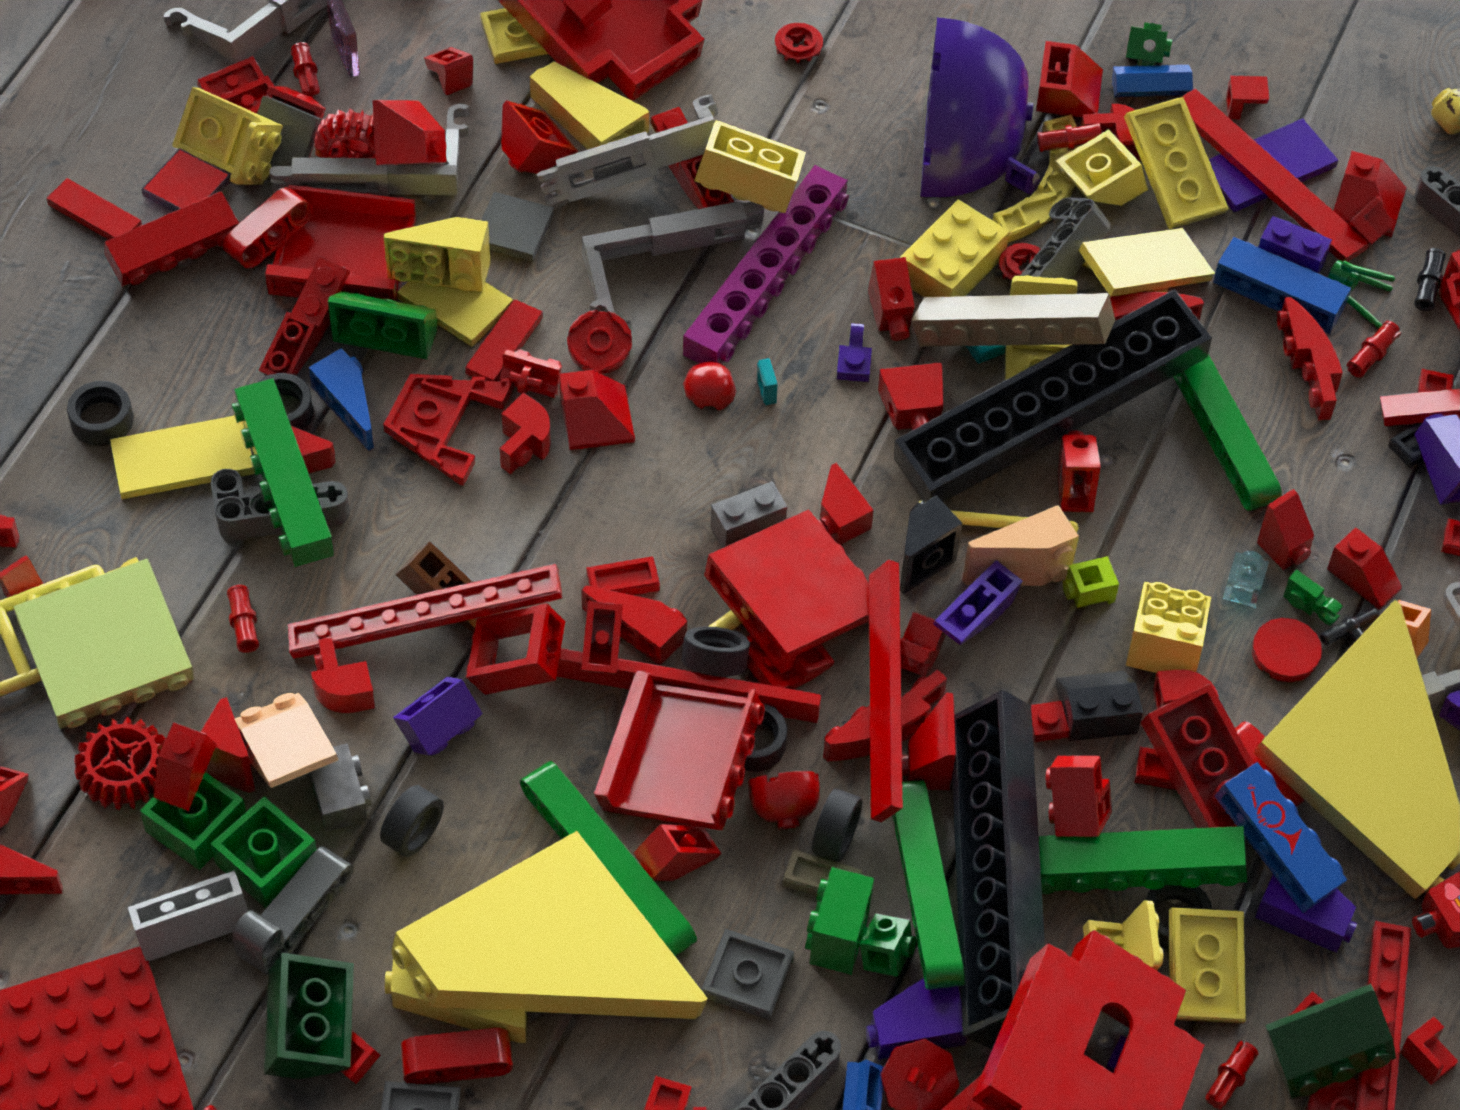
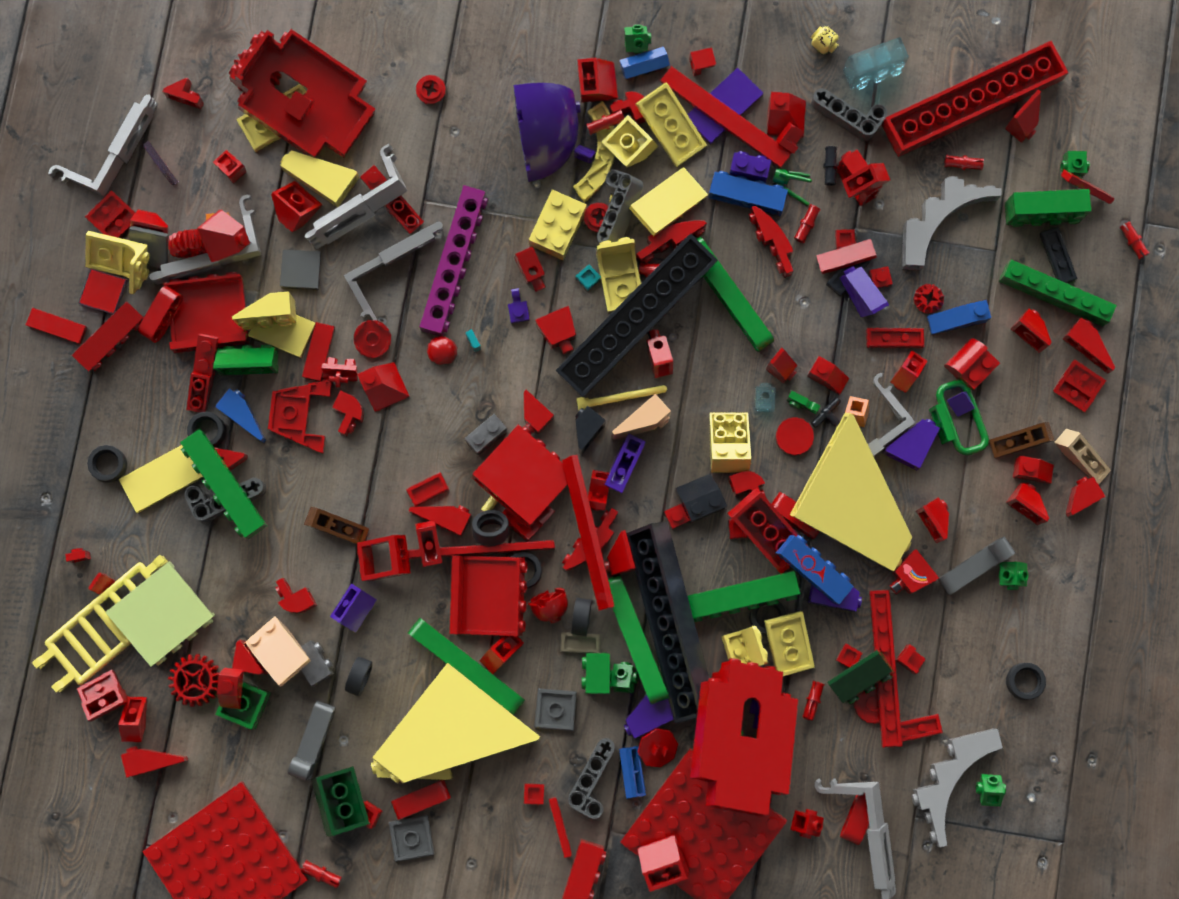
camera: 15 degrees left, 25 degrees up
(188, 916) = (260, 762): light grey brick -> none
(242, 618) = (229, 573): red pin -> none
(263, 850) = (287, 714): green brick -> none
(305, 69) = (145, 190): red axle -> none
(426, 610) = (328, 547): tile -> none
(750, 167) = (428, 205): light yellow brick -> none
(1014, 320) = (603, 272): dark tan brick -> none
(1079, 796) = (705, 572): red brick -> none
(1091, 582) = (684, 419): lime brick -> none

